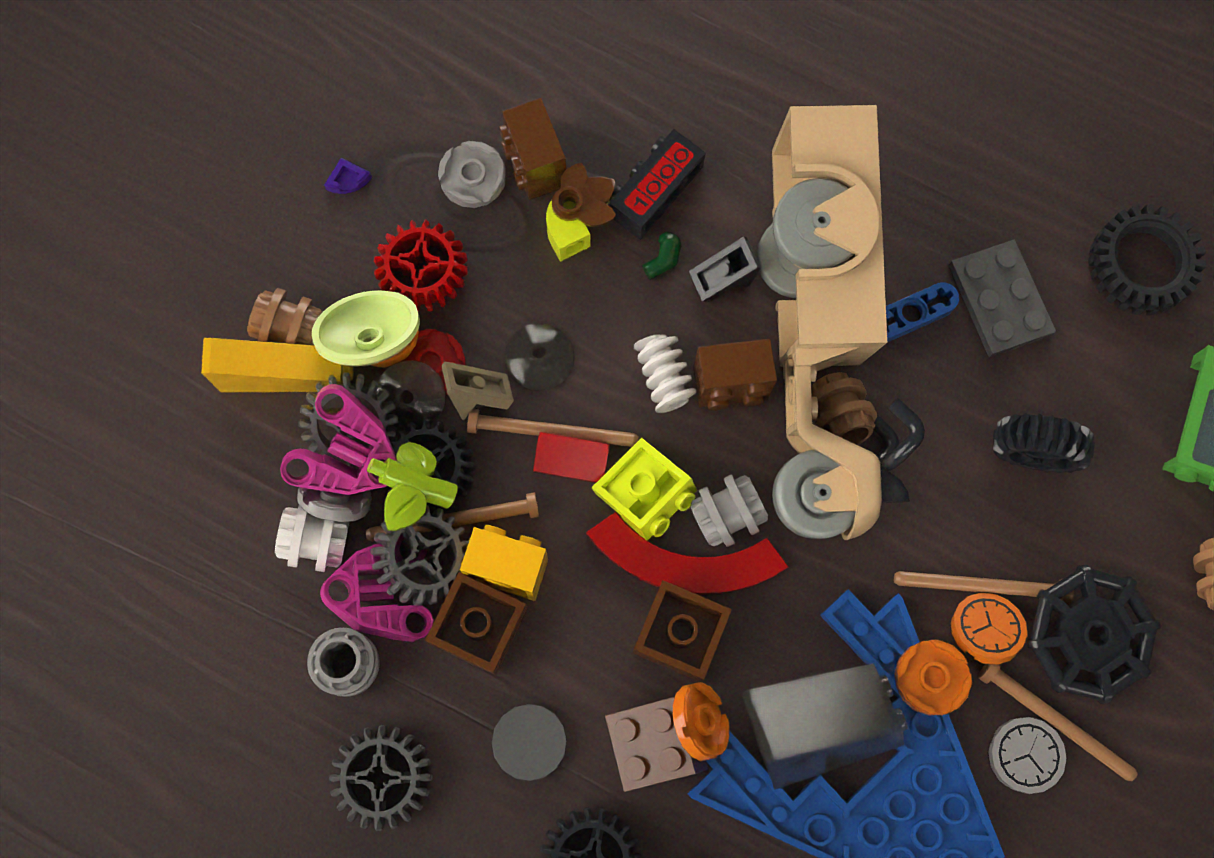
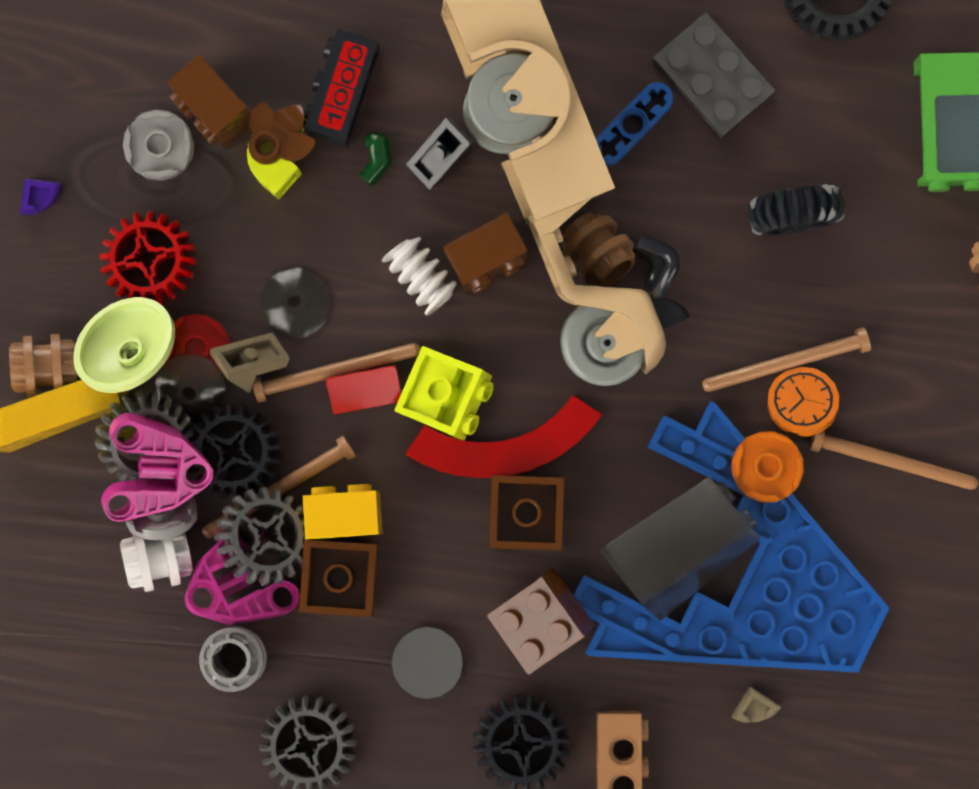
camera: 15 degrees left, 10 degrees up
(411, 485) = (229, 477): lime plant -> none
(700, 722) = (572, 588): orange tile -> none
(729, 510) = (529, 385): light grey piece -> none
(1027, 755) = (875, 502): light grey tile -> none
(1073, 631) = (879, 370): black plate -> none

